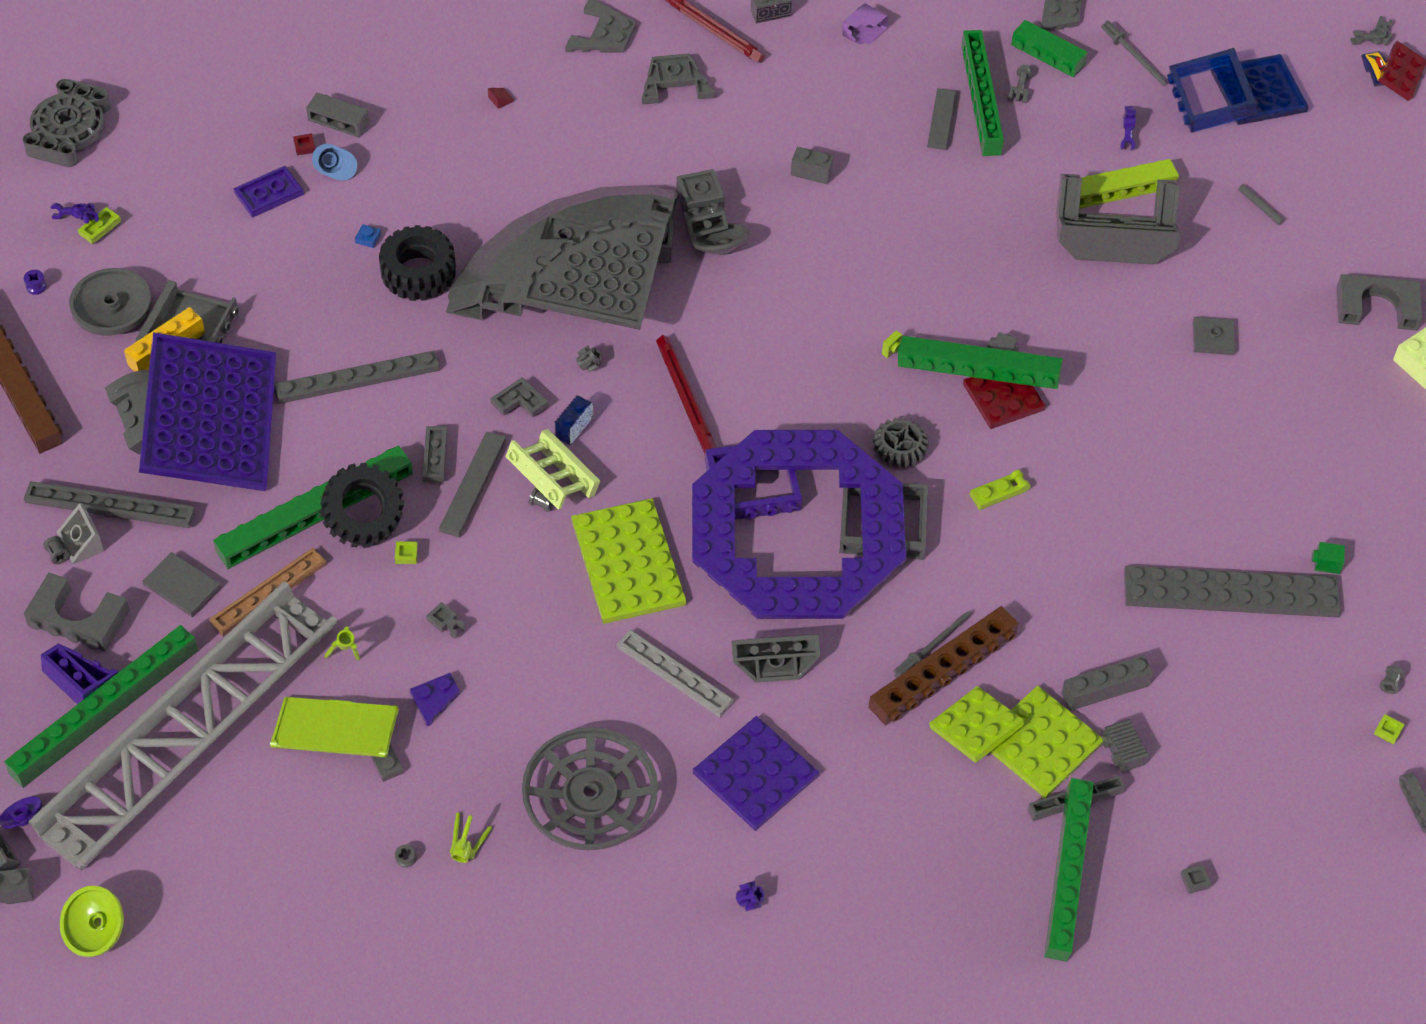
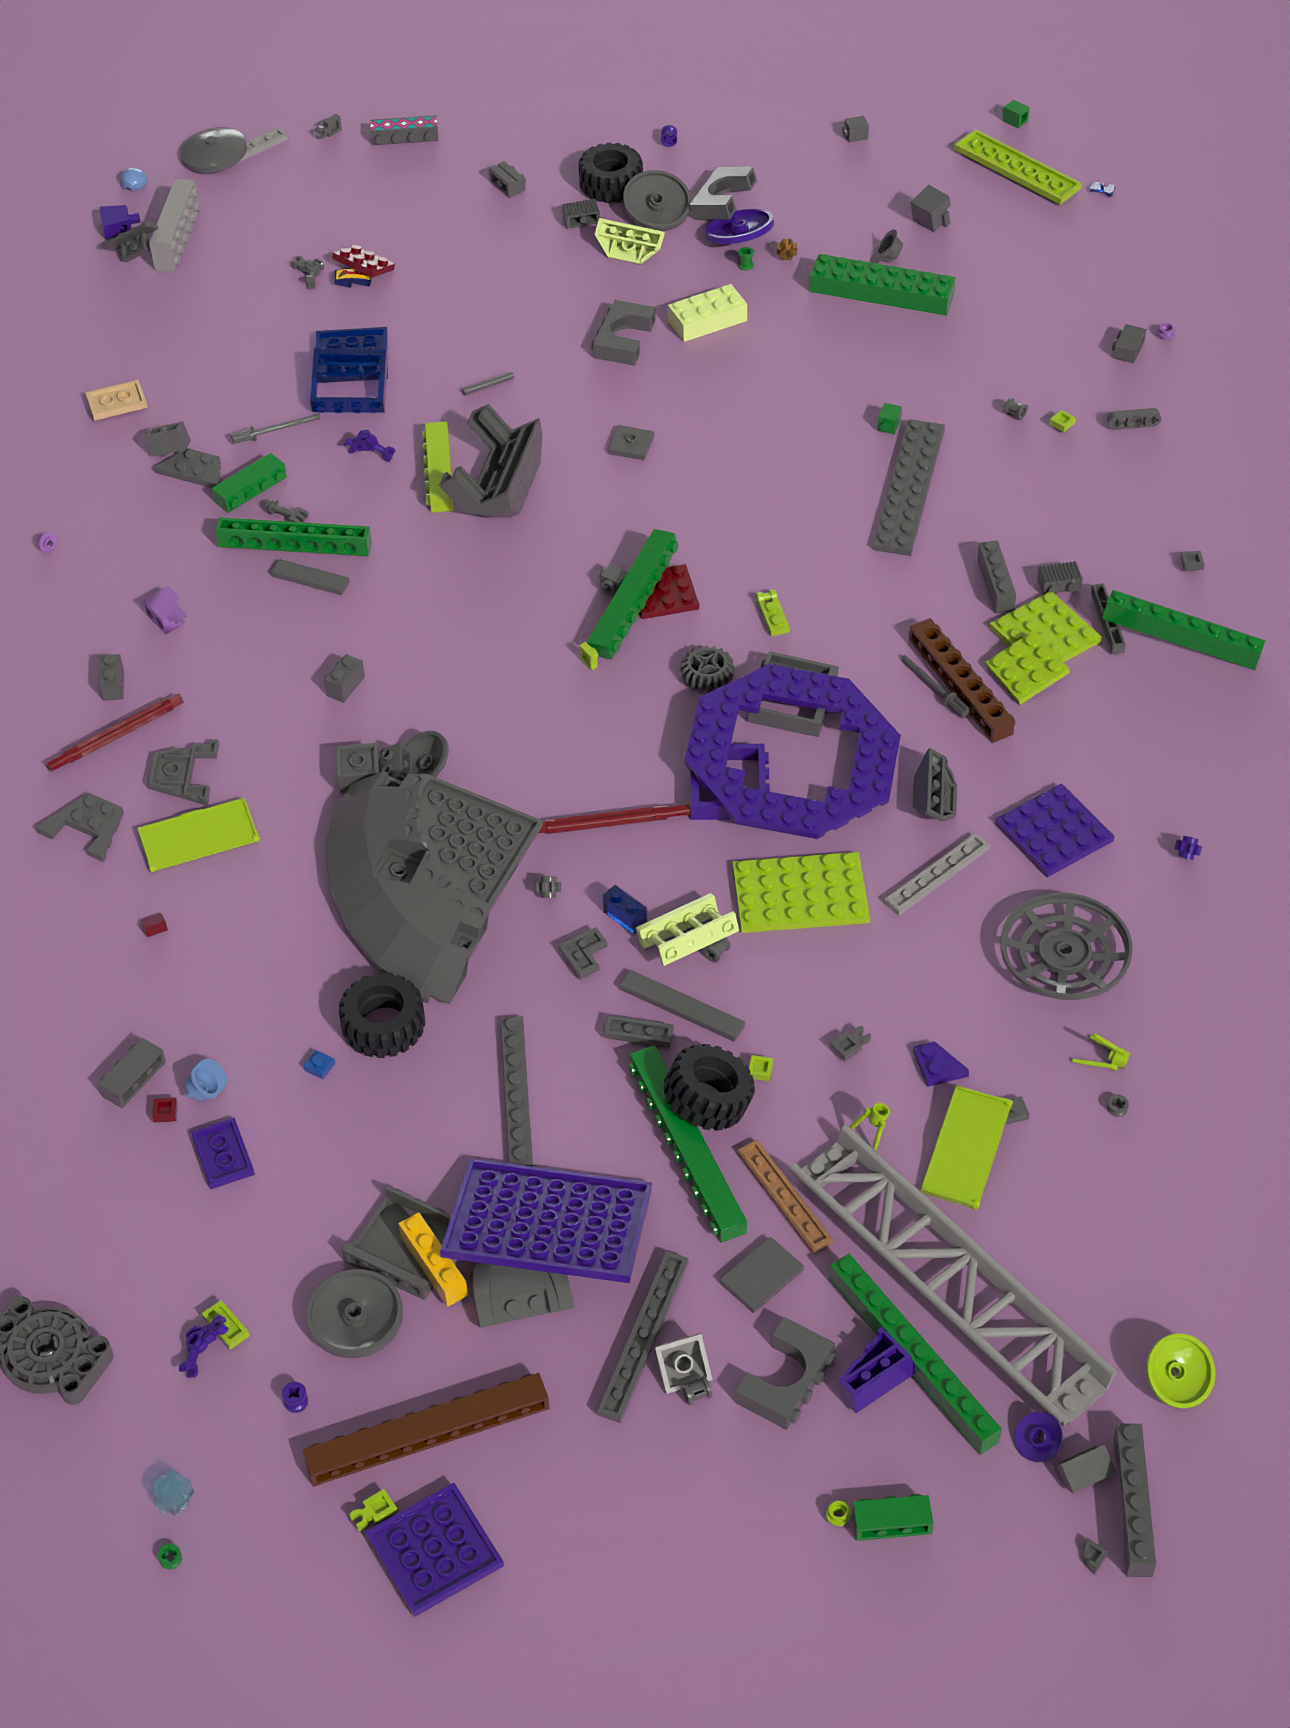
camera: 75 degrees left, 5 degrees down
(605, 104) = (198, 834): none -> lime door

